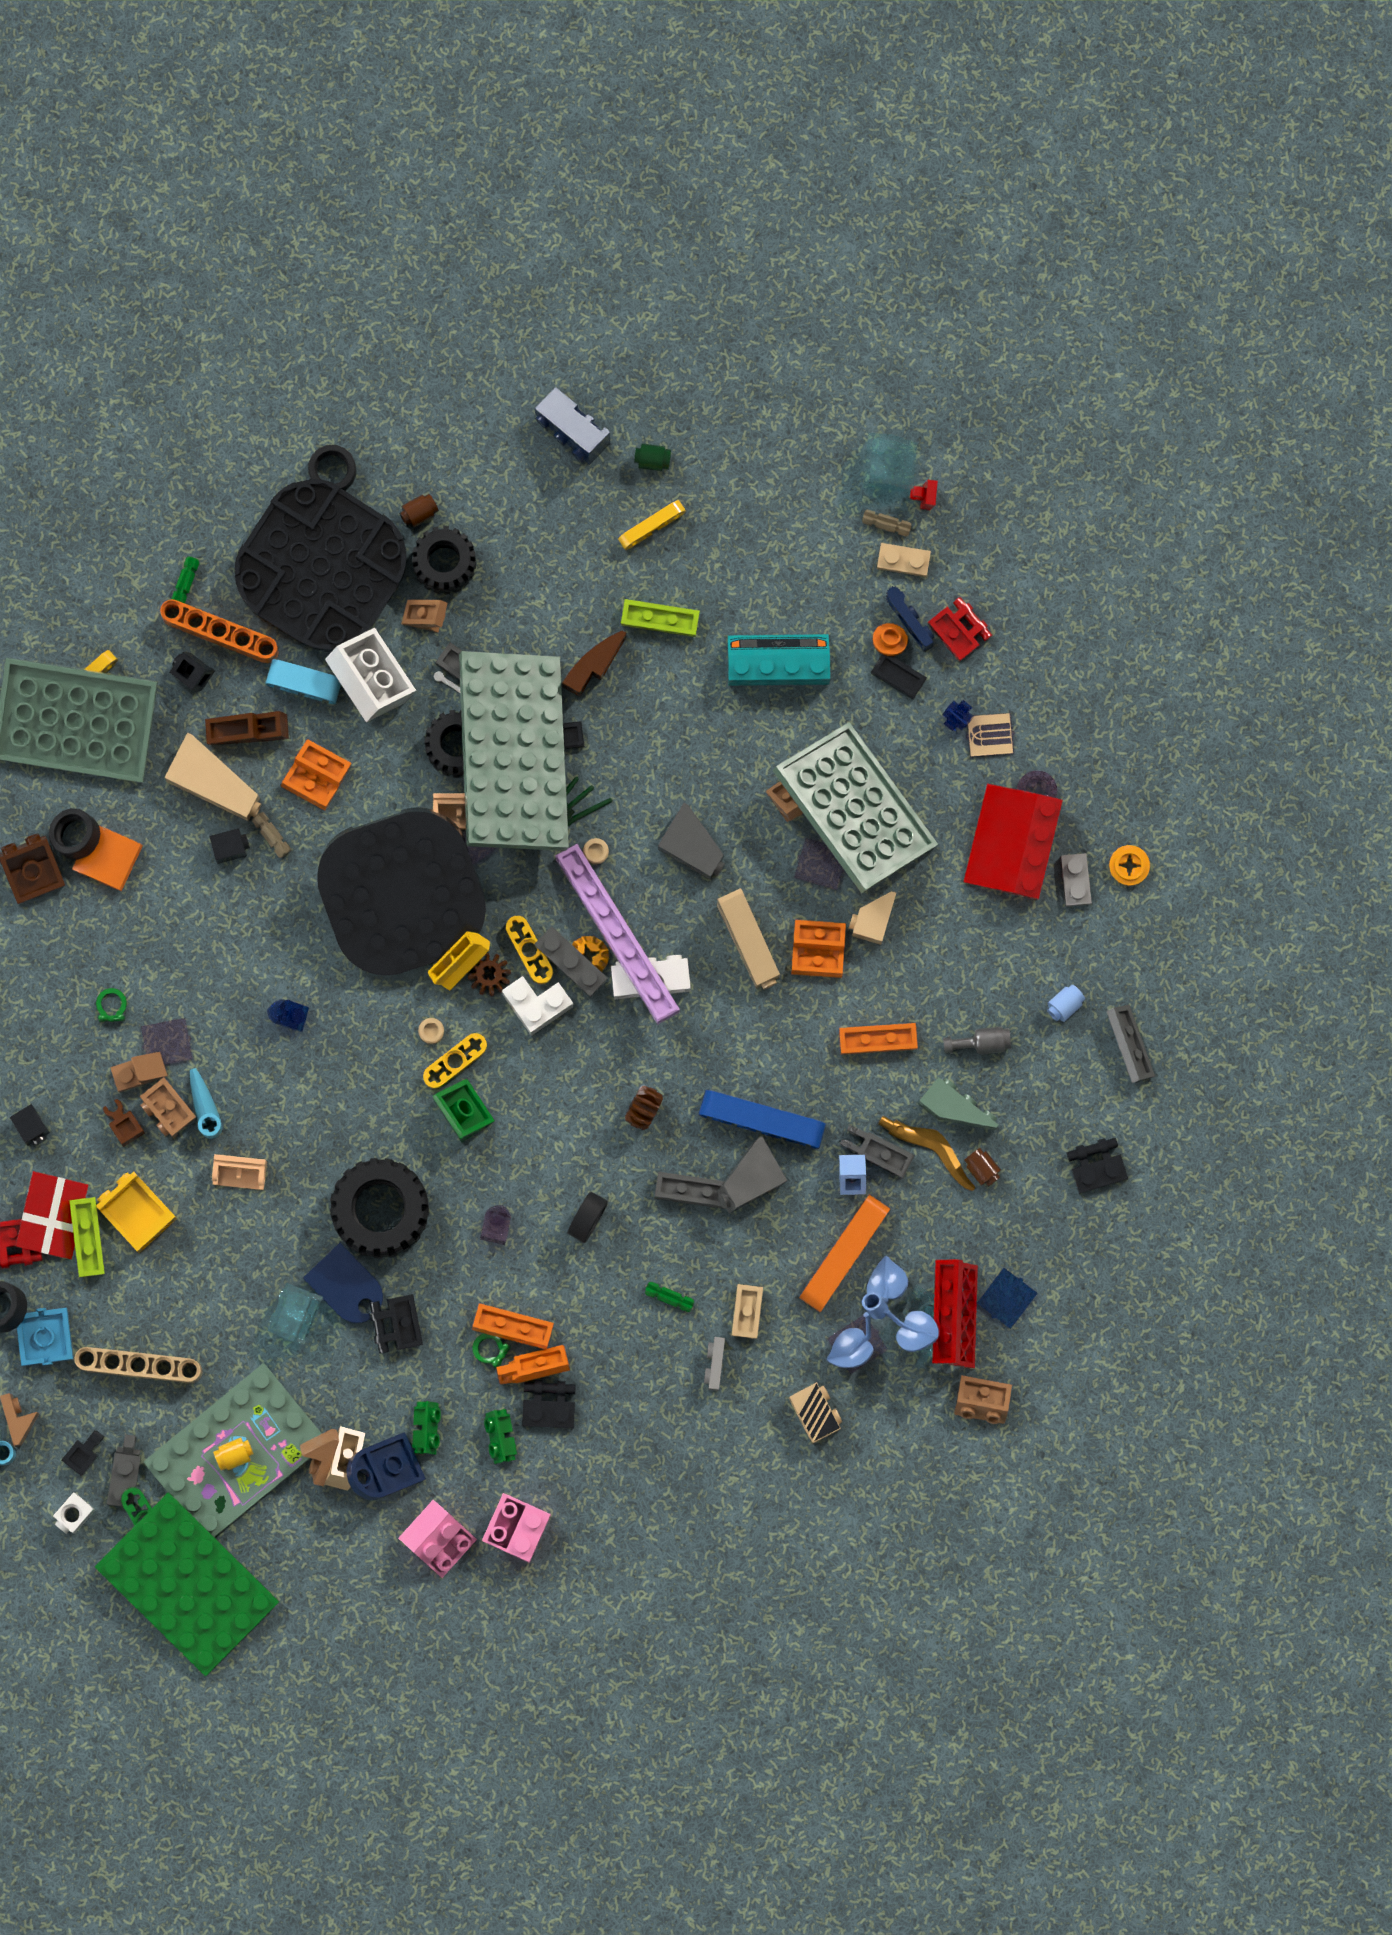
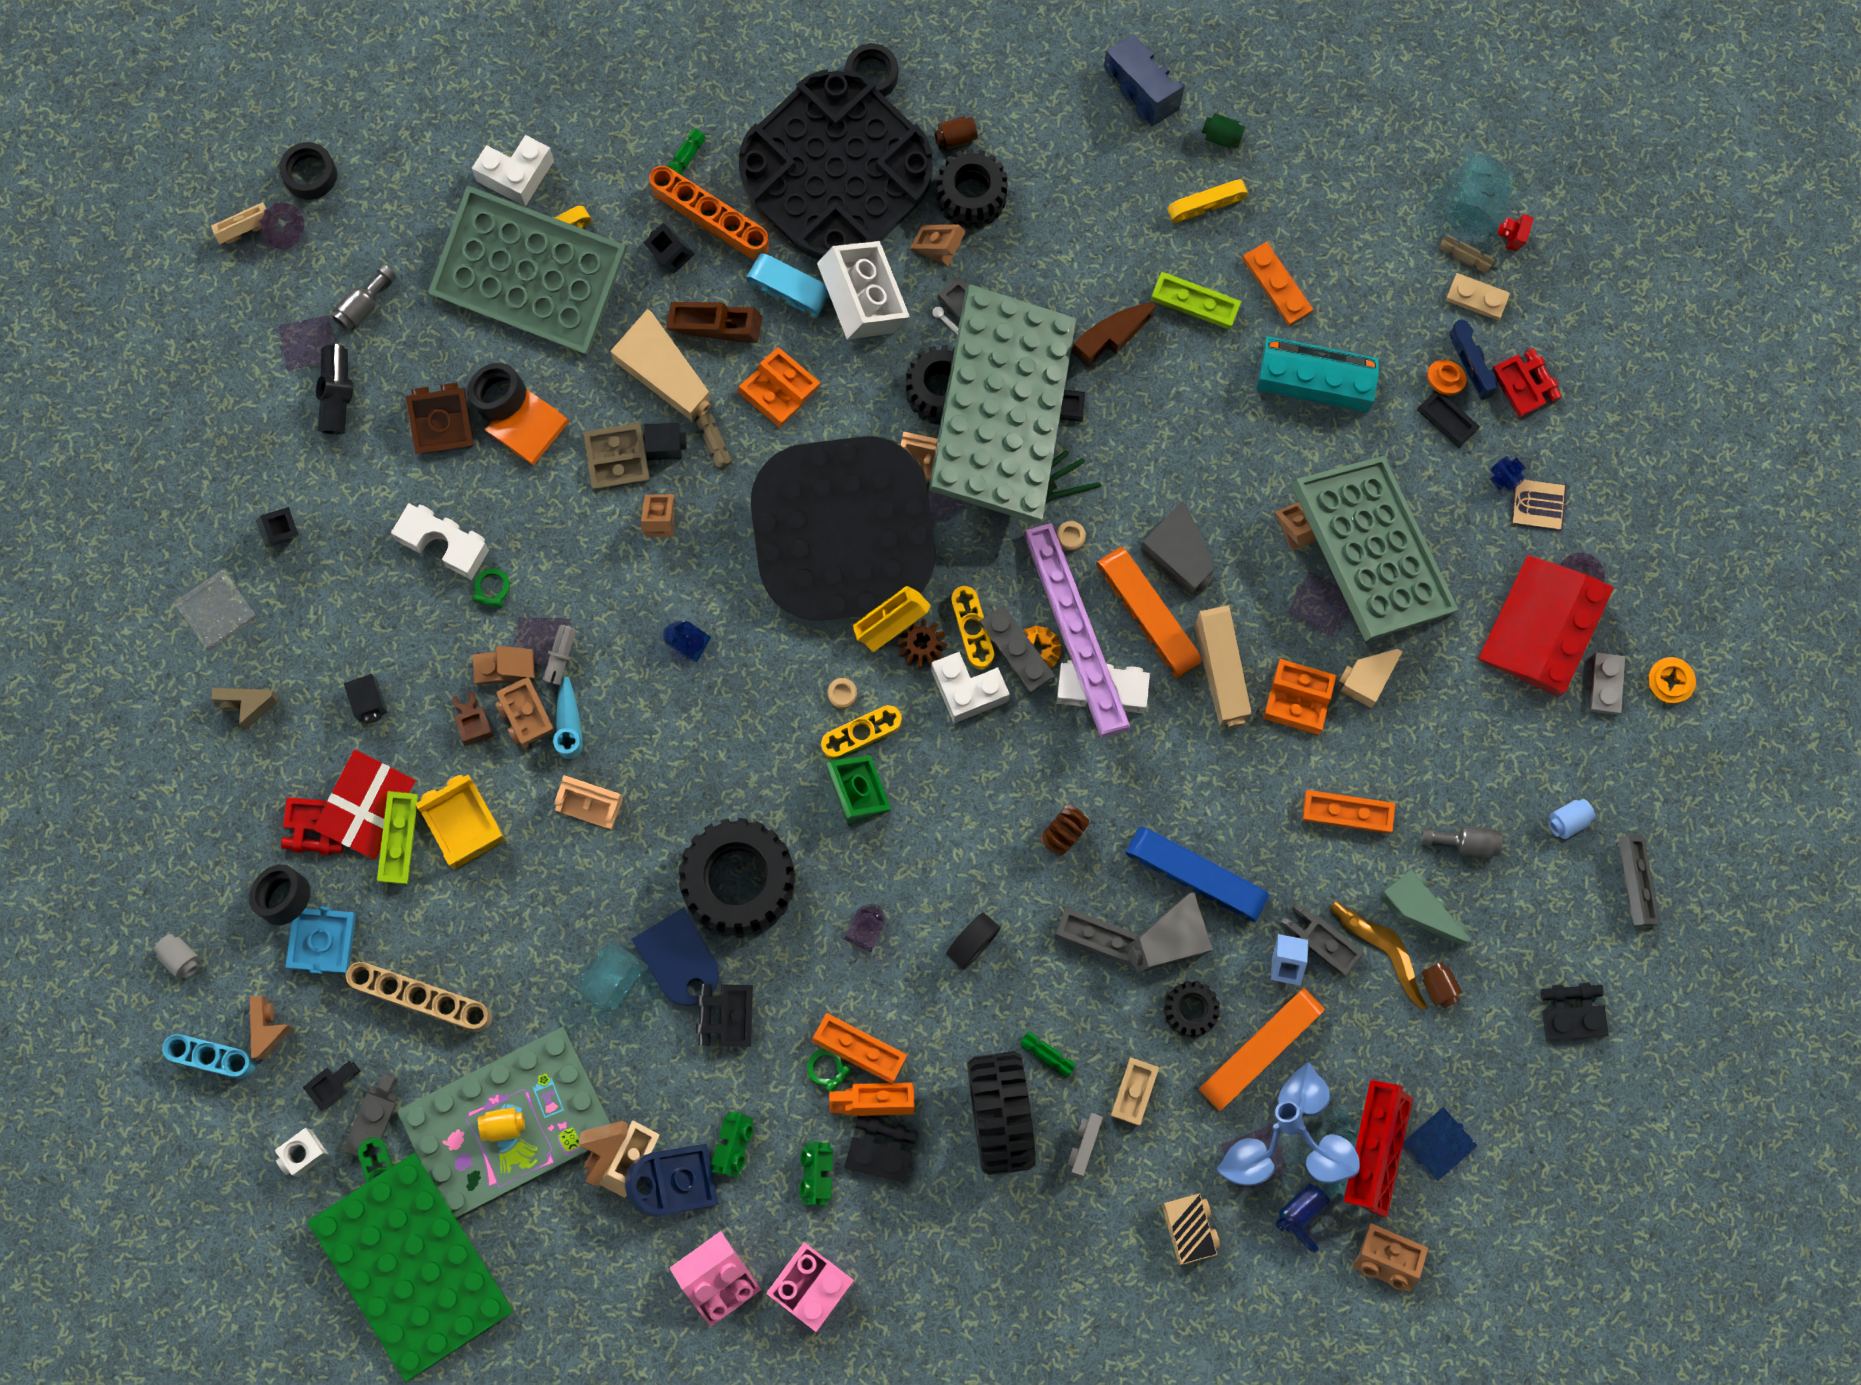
camera: 15 degrees right, 5 degrees down
(37, 967) = (419, 527): none -> white arch
(41, 636) = (514, 176): none -> white brick
(184, 1051) = (559, 654): none -> light grey axle
(190, 866) = (616, 455): none -> dark tan slope
(239, 911) = (658, 516): none -> medium nougat slope
(640, 1353) = (1001, 1113): none -> black tyre
(676, 903) = (1150, 611): none -> orange beam
(728, 586) = (1277, 284): none -> orange plate
(788, 1219) = (1208, 1001): none -> black tyre
(902, 1378) = (1300, 1211): none -> clear blue piece

